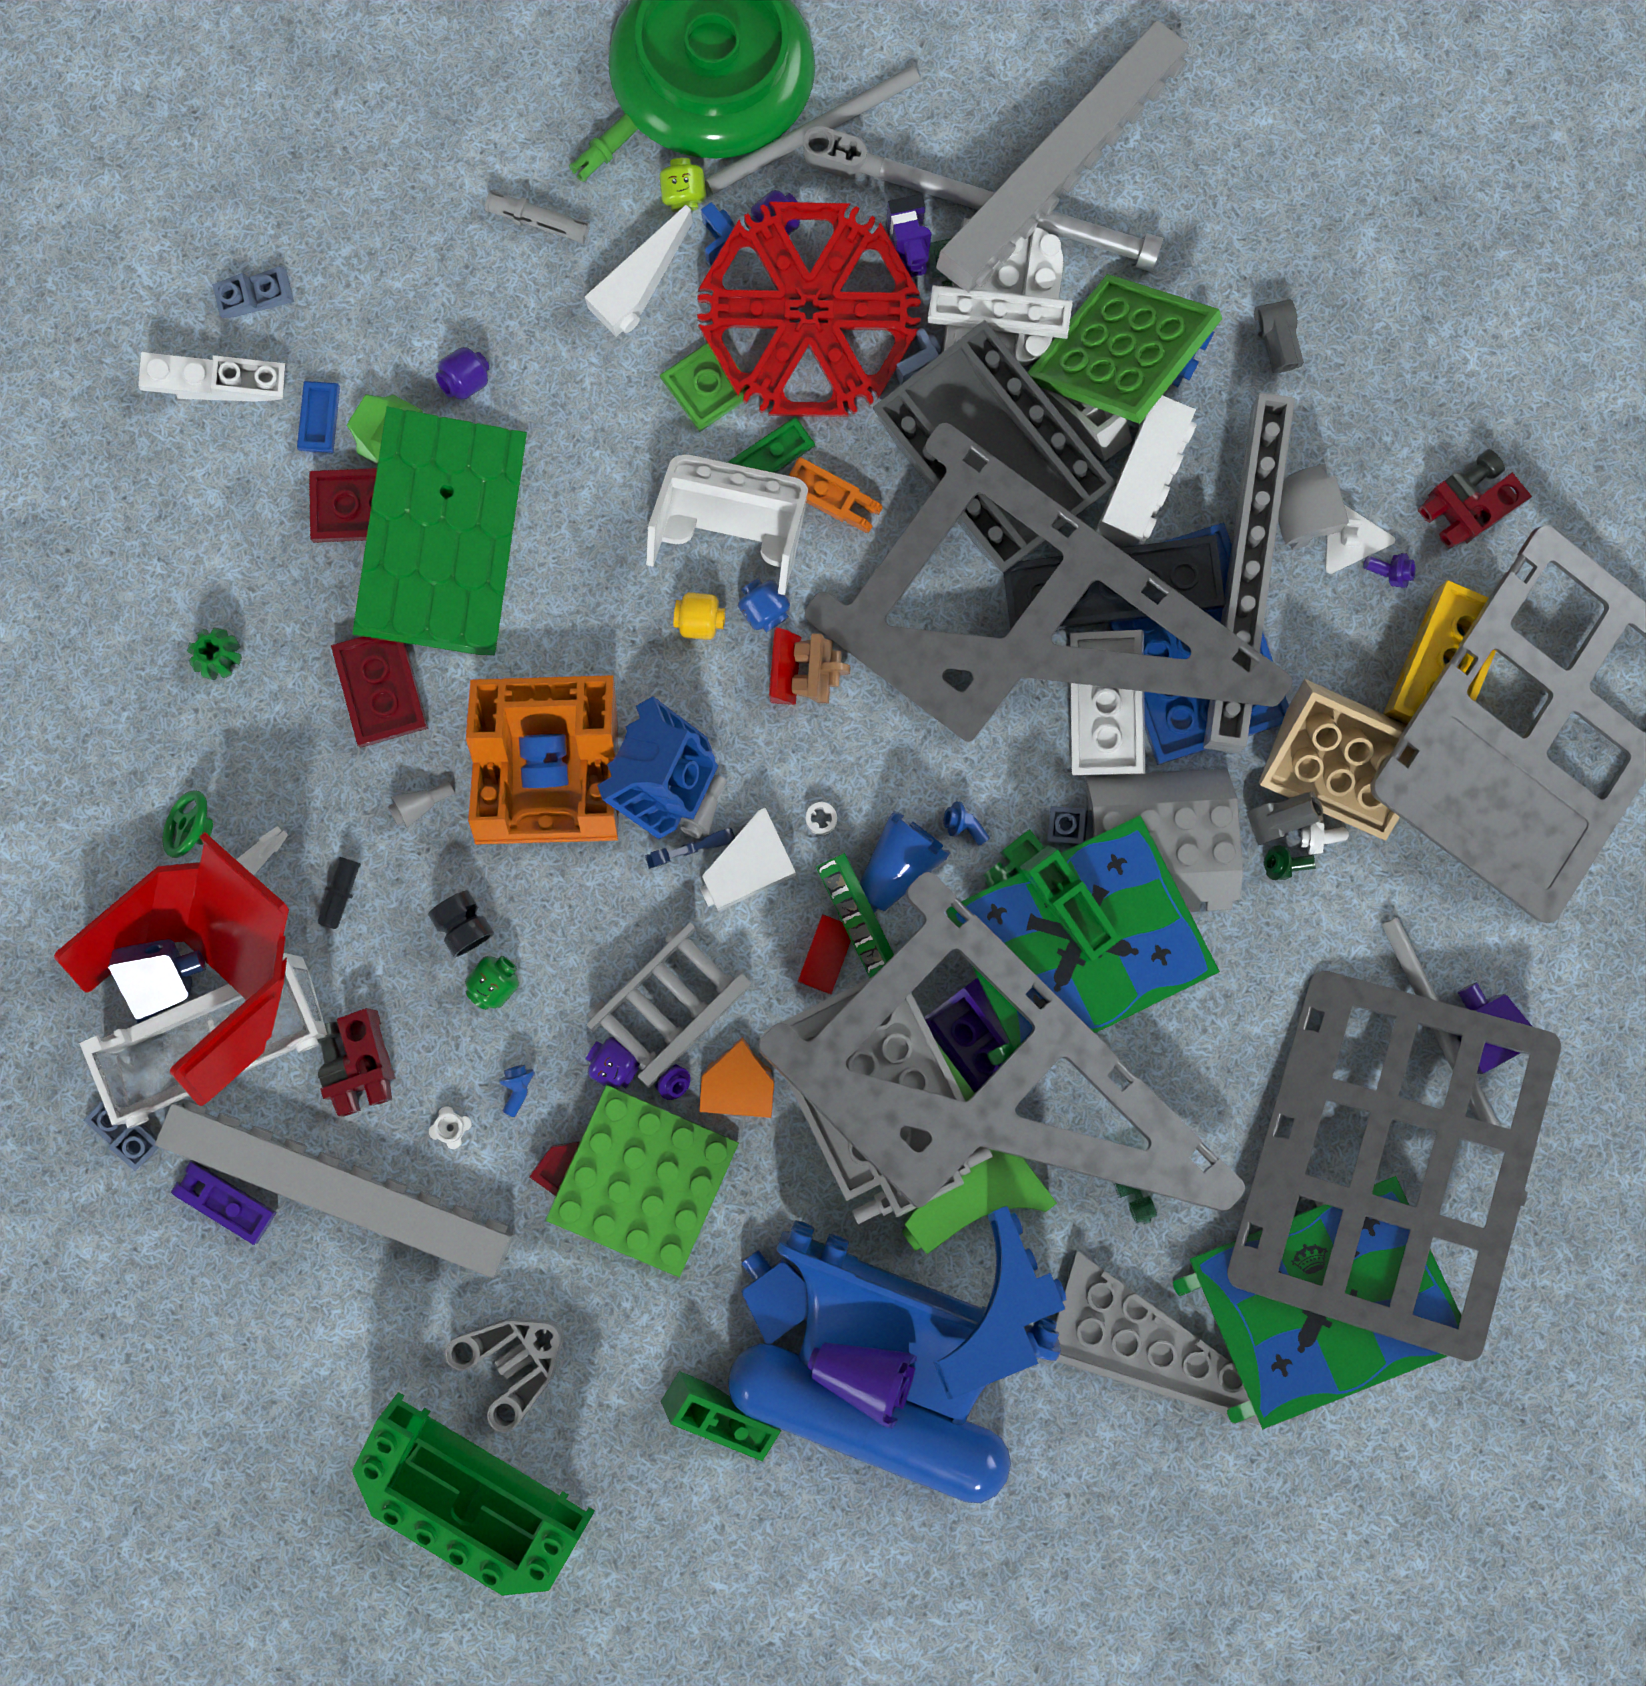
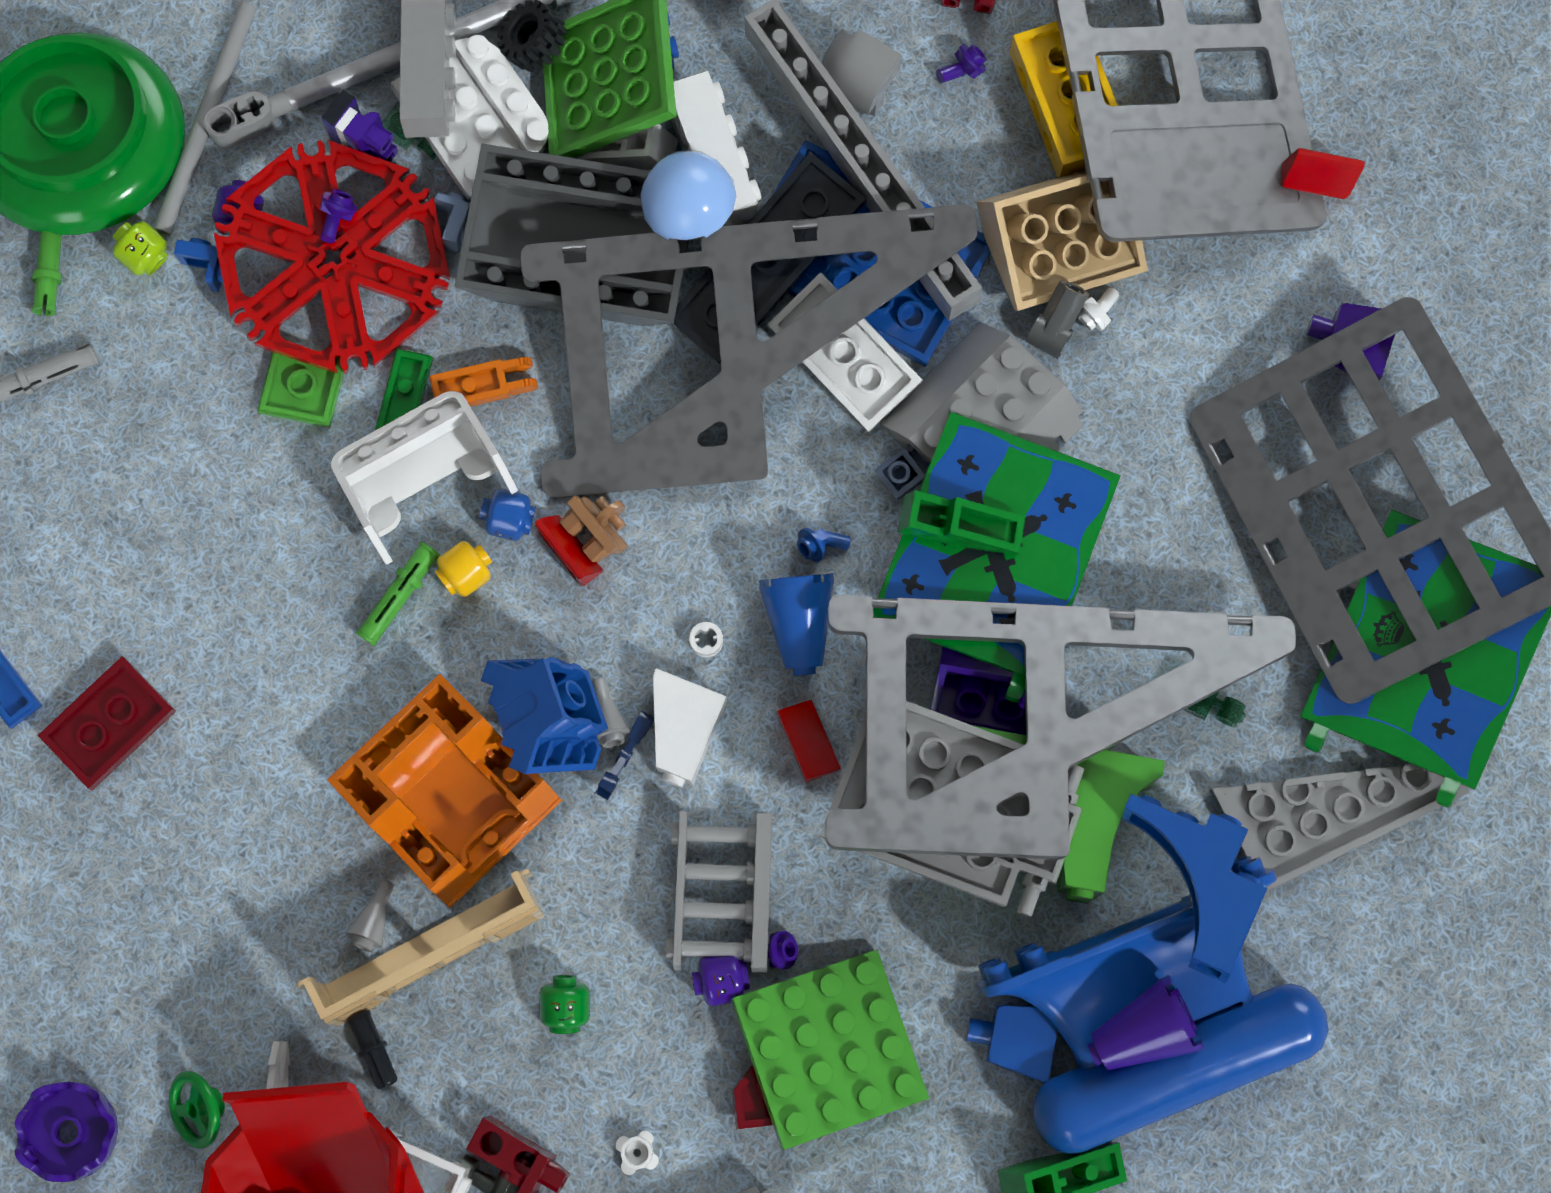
camera: 45 degrees left, 5 degrees down
(66, 757) = (38, 1131): none -> dark purple plate
(222, 660) = (79, 953): green piece -> none
(368, 423) = (66, 648): bright green slope -> none
(379, 689) = (254, 855): dark red plate -> none
(430, 859) = (427, 952): none -> tan piece
(439, 532) = (192, 689): green piece -> none
(461, 924) = (496, 981): black wheel -> none
(462, 373) = (94, 548): dark purple head -> none
(517, 1080) = (657, 1063): blue plate -> none
(543, 760) = (445, 790): blue wheel -> none
(628, 288) = (170, 366): white slope -> none
(679, 583) = (424, 557): none -> bright green pin
(737, 1084) = (833, 904): orange slope -> none
(843, 276) = (337, 206): none -> dark purple plate
(855, 913) = (804, 687): green tile -> none
(1001, 311) = (488, 126): white tile -> none
(1016, 855) = (884, 530): green plate -> none
(1094, 489) = (687, 196): none -> light blue cylinder
(1098, 285) = (543, 43): none -> black tyre
(1283, 864) = (1090, 354): dark green plate -> none
(1355, 542) = (917, 70): white piece -> none
(1422, 987) = (1276, 354): light grey piece -> none
(1582, 884) = (1321, 173): none -> red slope

